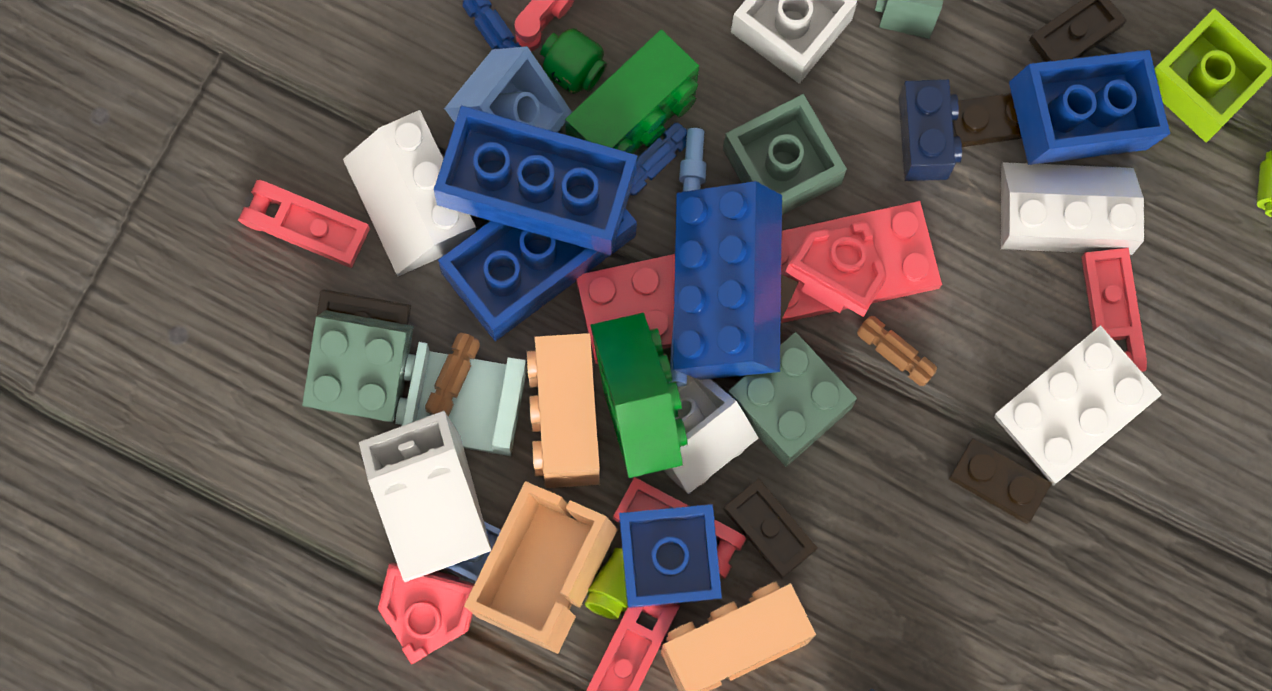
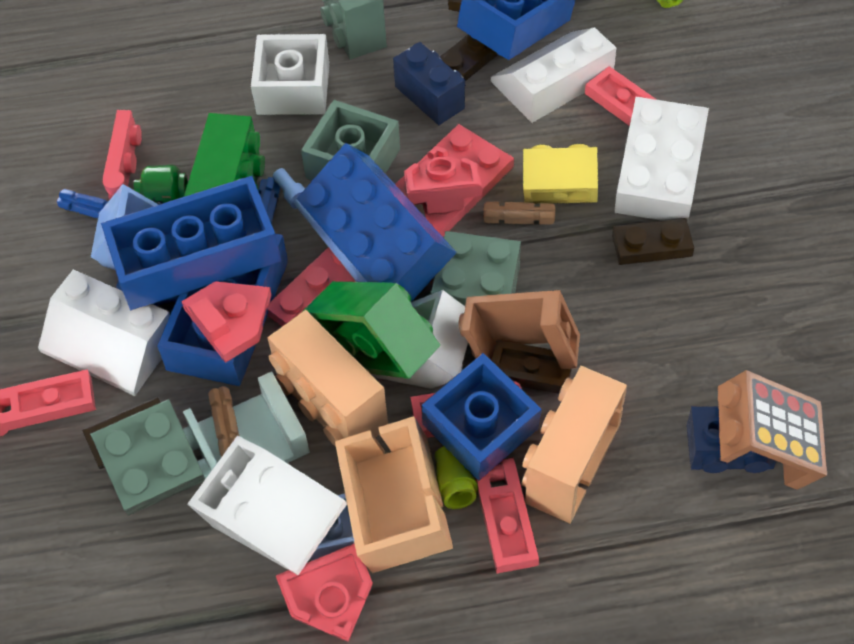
camera: 30 degrees left, 20 degrees down
(521, 280) = (229, 315): none -> coral plate
(809, 523) = (521, 320): none -> nougat panel
(966, 343) = (560, 174): none -> light yellow brick

